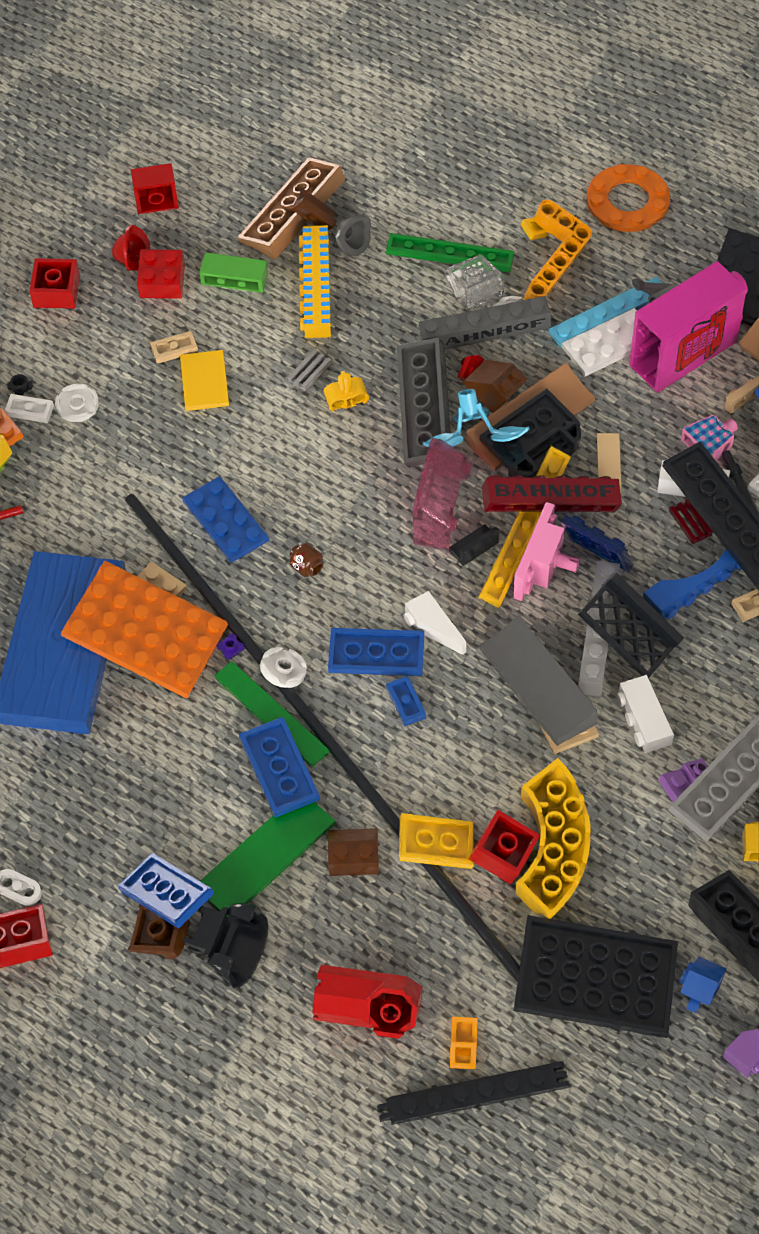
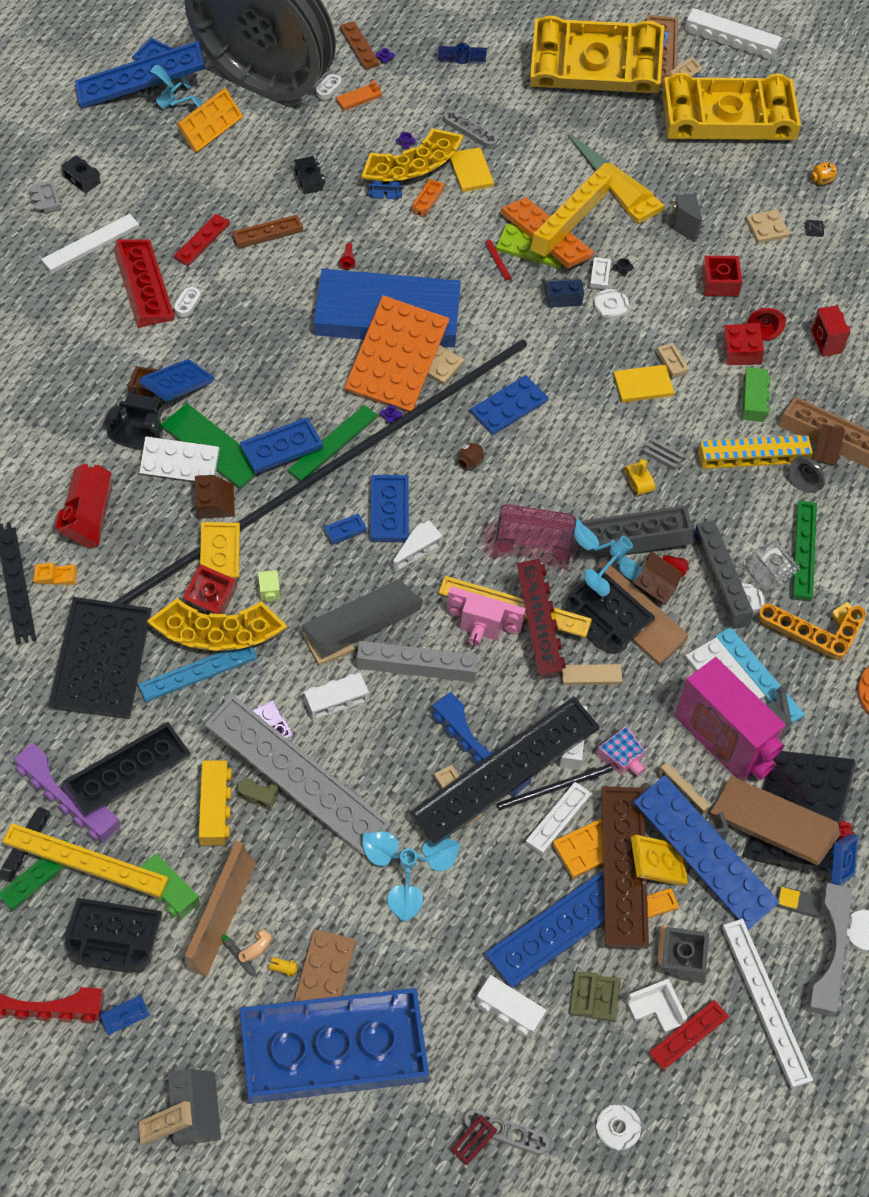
camera: 80 degrees right, 0 degrees up
(52, 447) = (564, 292): none -> dark blue slope
(283, 677) = (366, 455): white tile -> none
(293, 890) = (178, 459): none -> white plate
(475, 544) = (497, 573): black panel -> none
(490, 785) = (269, 585): none -> yellowish green brick
(595, 541) = (491, 652): clear blue plate -> none
(615, 879) = (195, 672): none -> dark azure tile
(640, 614) = (427, 685): black fence -> none
(701, 982) = (90, 727): blue brick -> none

